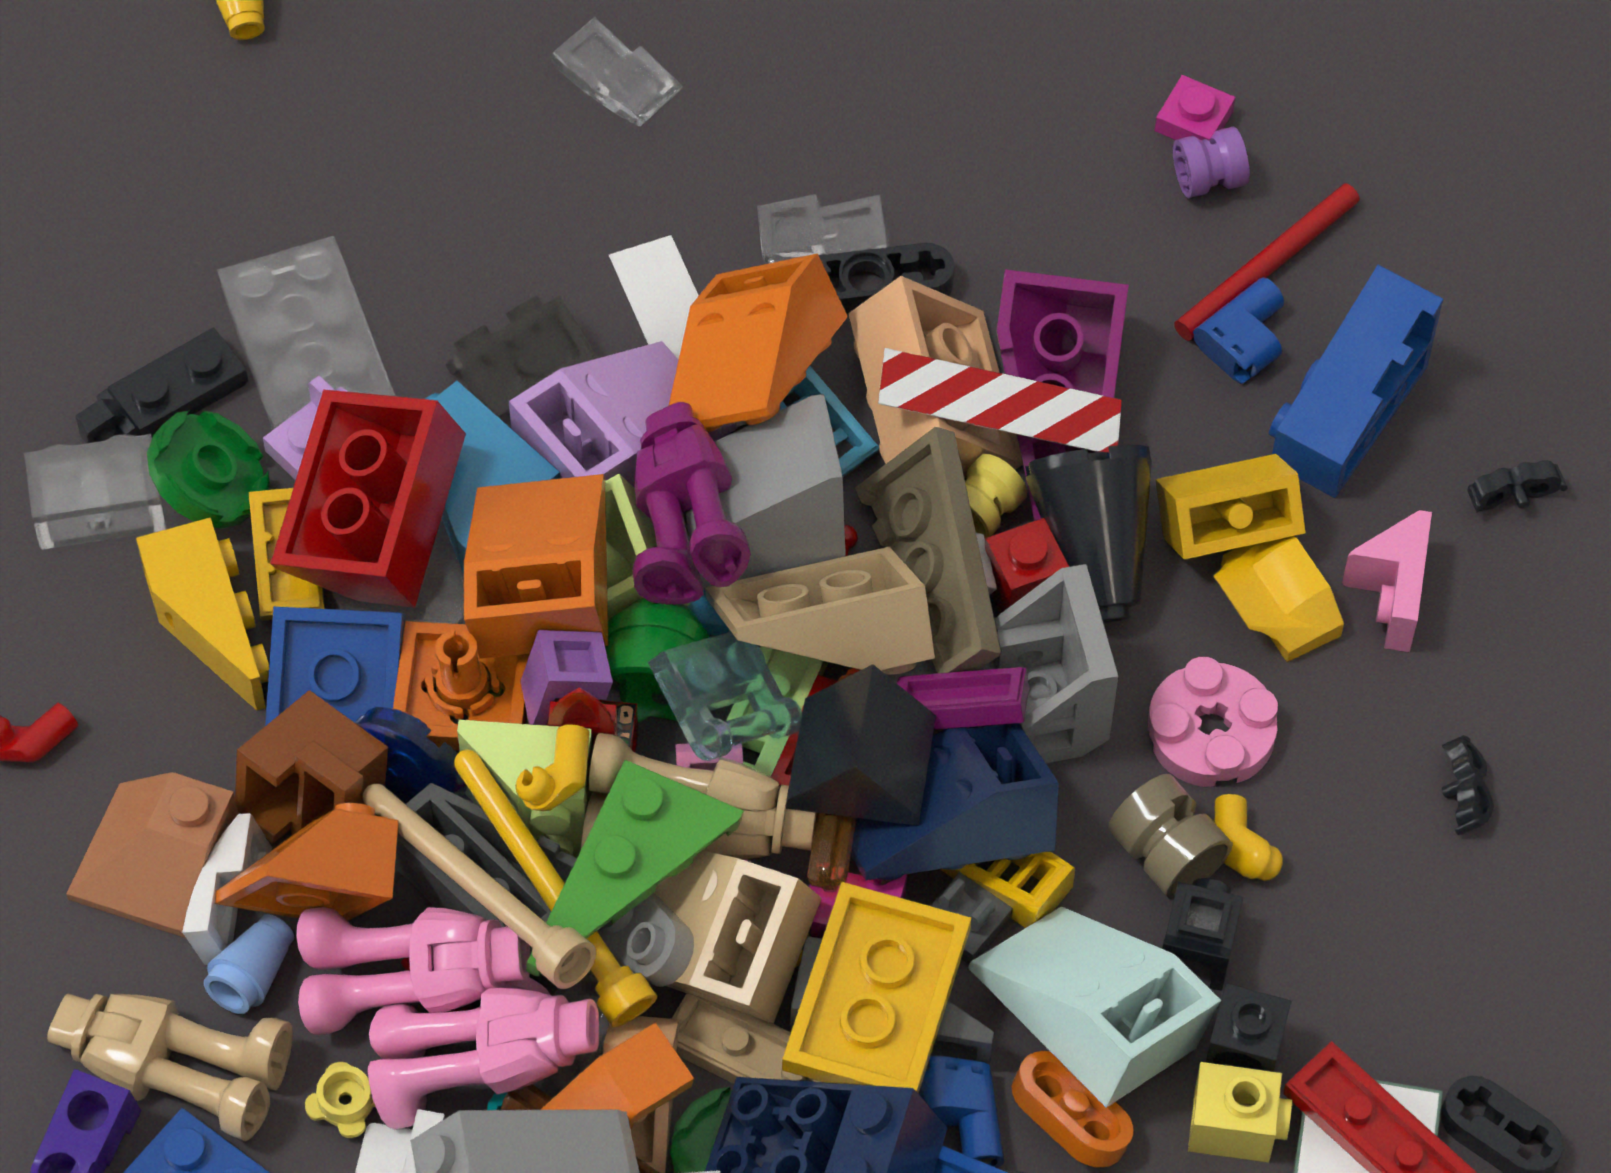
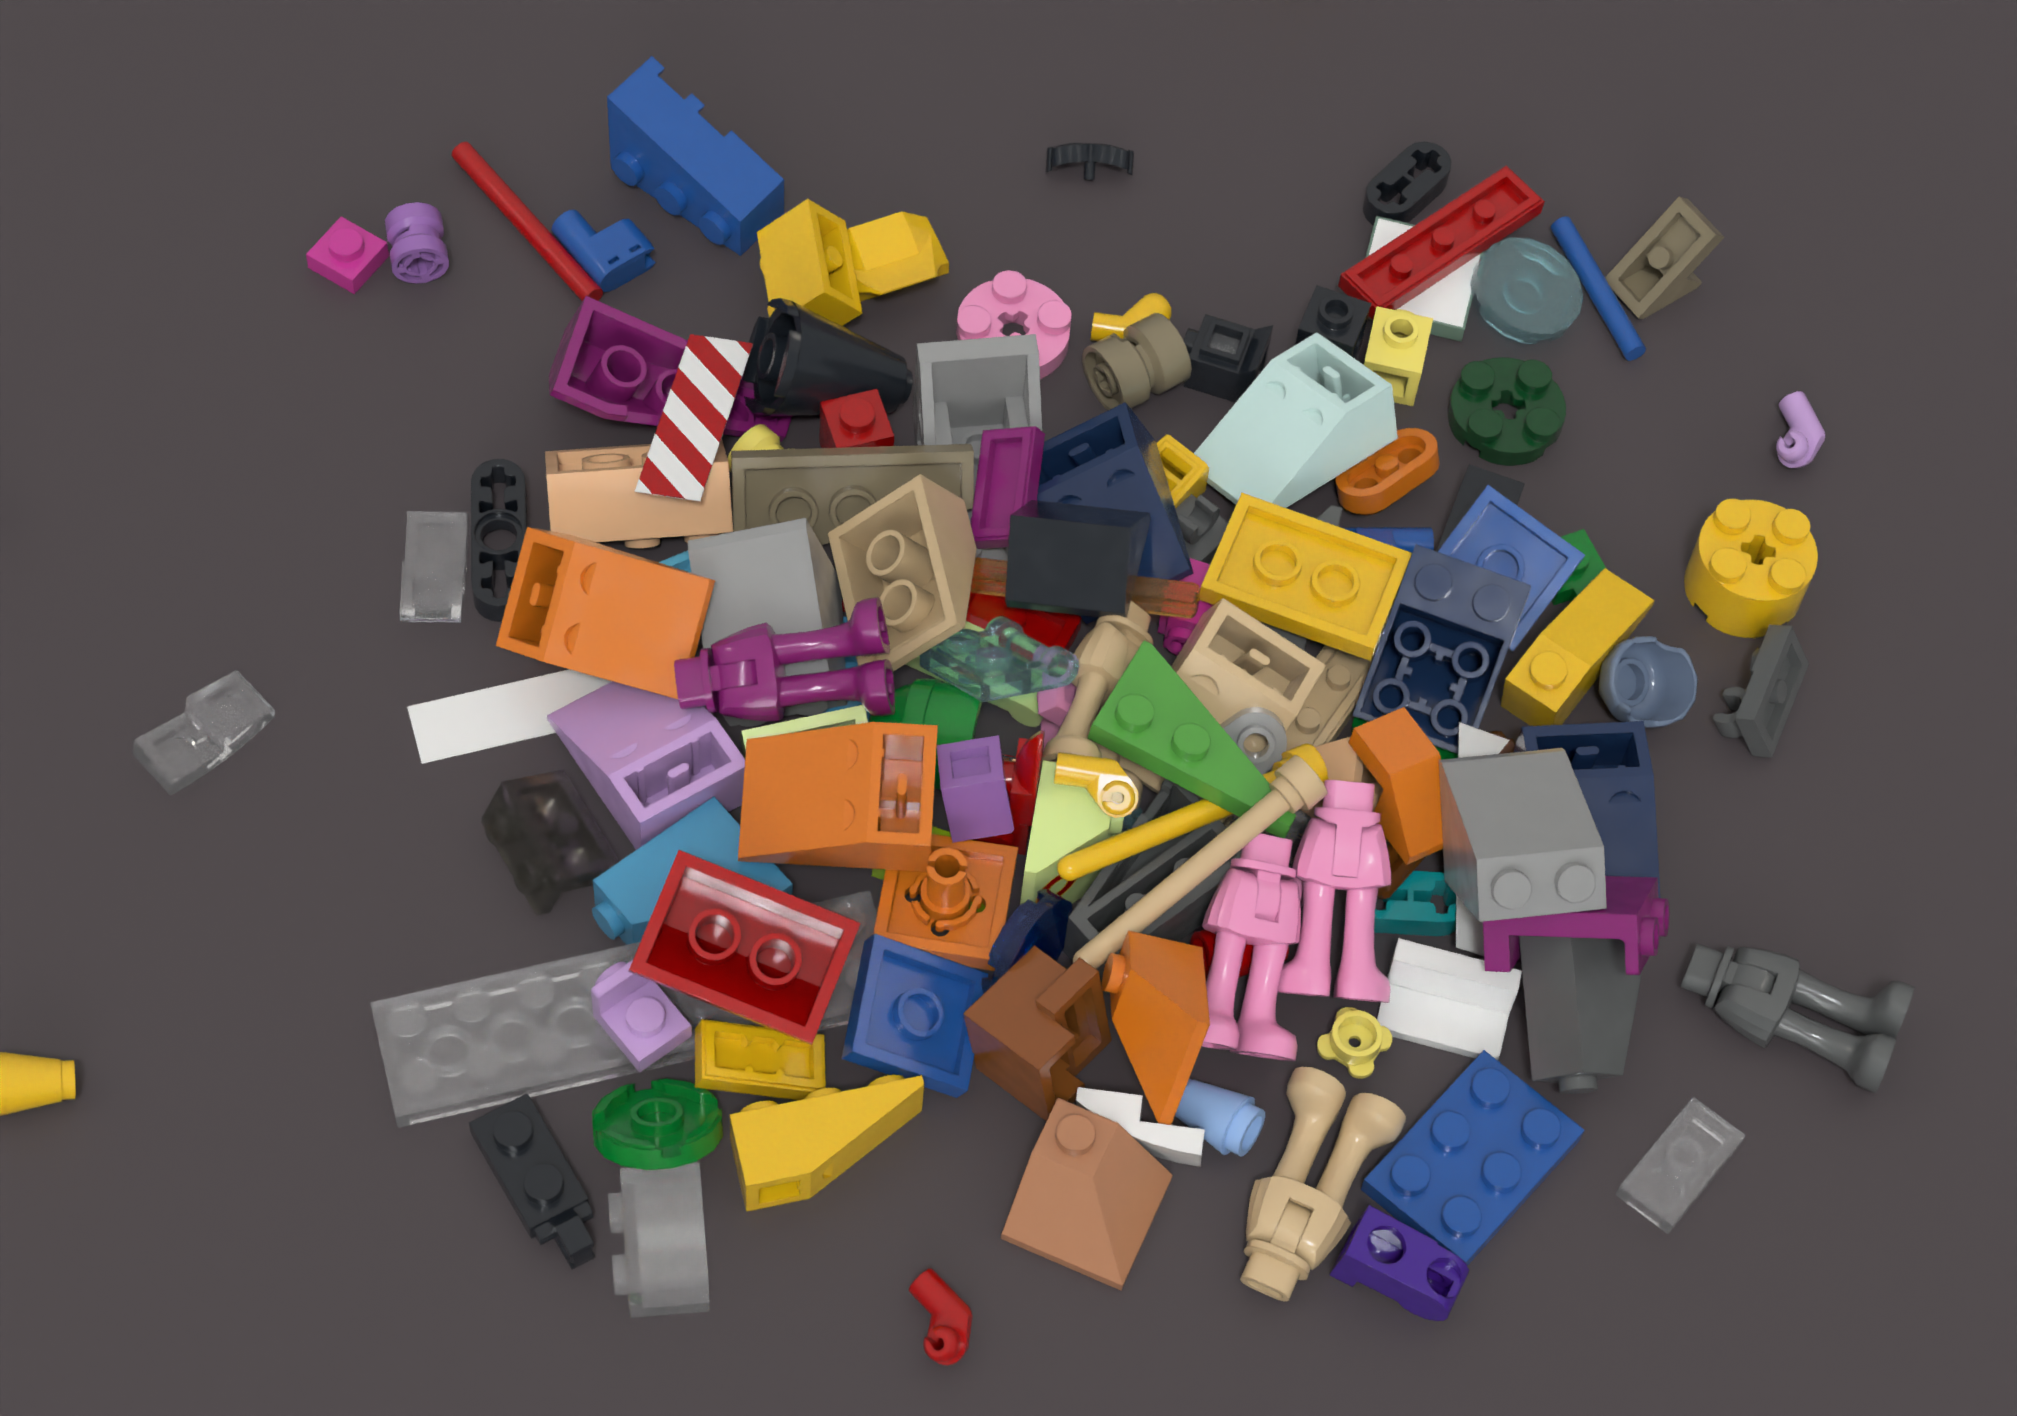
camera: 90 degrees left, 0 degrees up
(1395, 568) = (881, 162): bright pink slope -> none
(1521, 481) = (799, 94): black piece -> none

